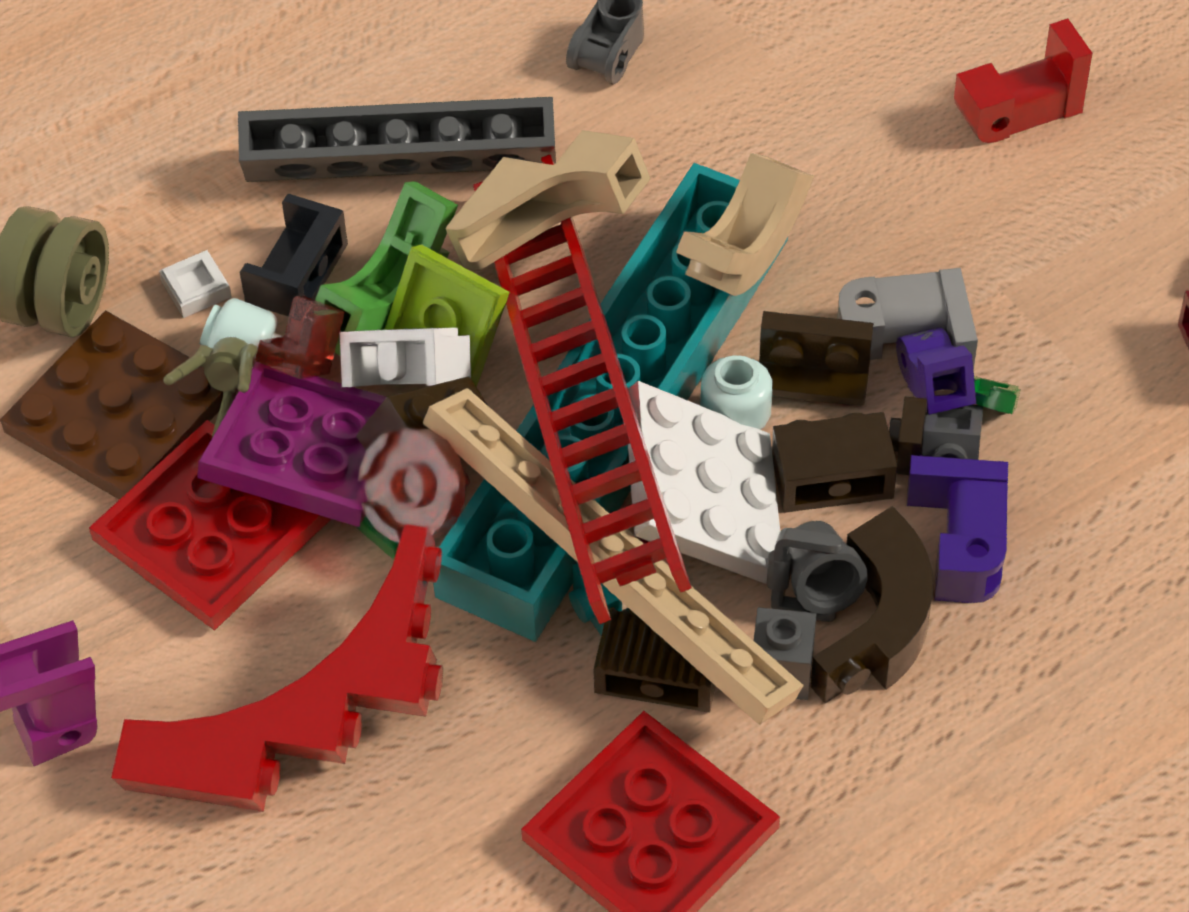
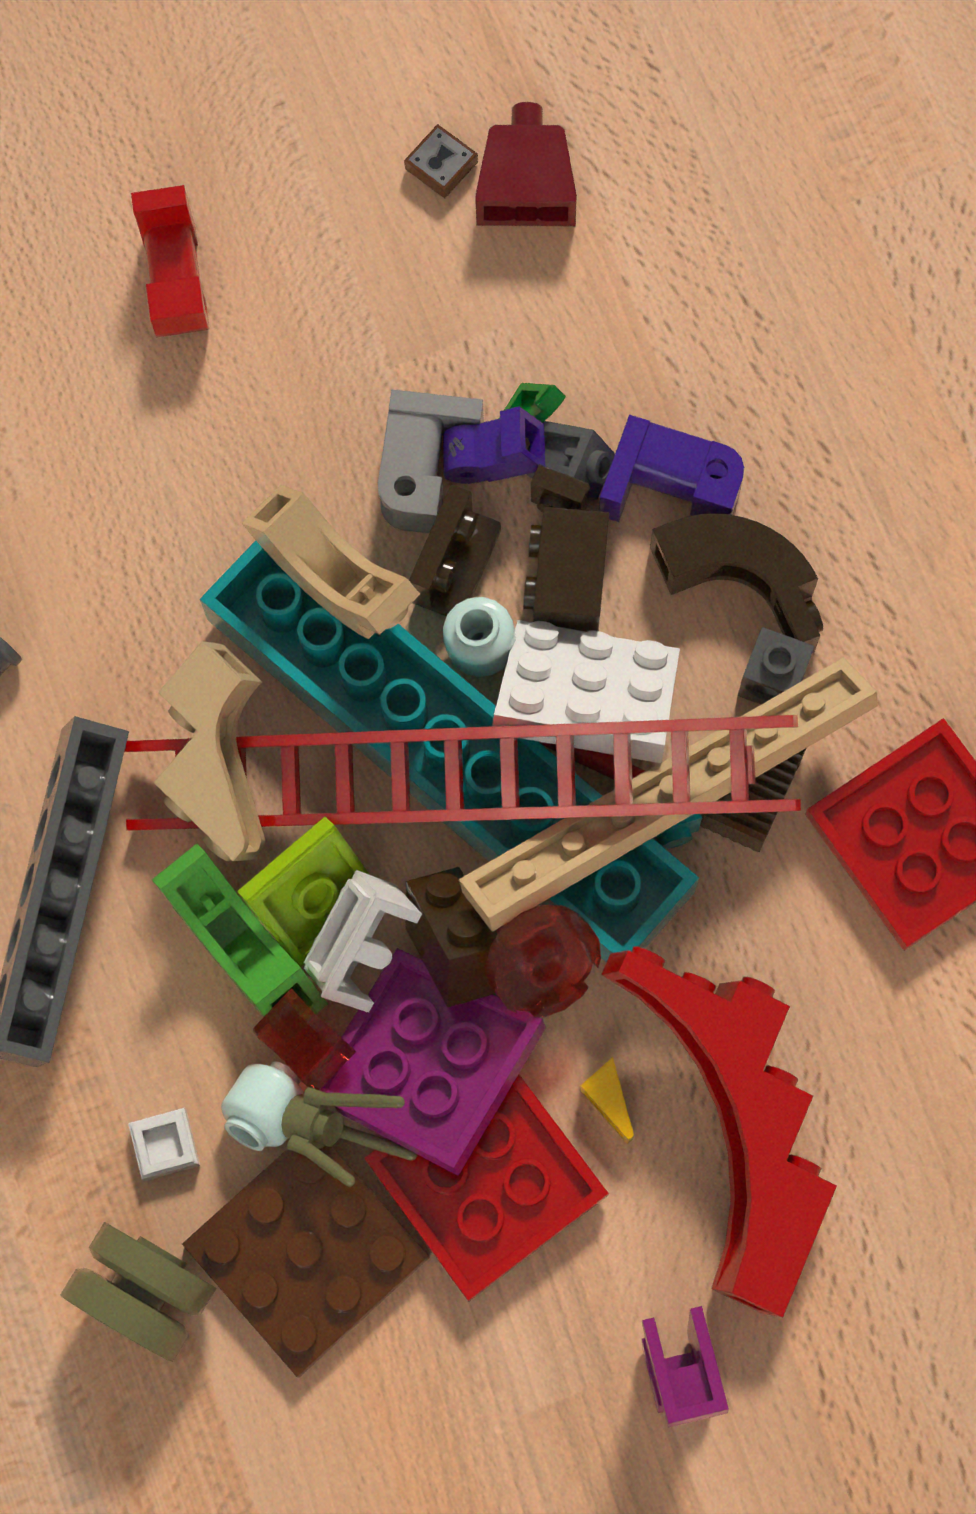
camera: 75 degrees left, 20 degrees up
(301, 257) = (170, 1031): black panel -> none
(308, 608) = (606, 1096): none -> yellow piece
(822, 570) = (692, 614): dark grey piece -> none

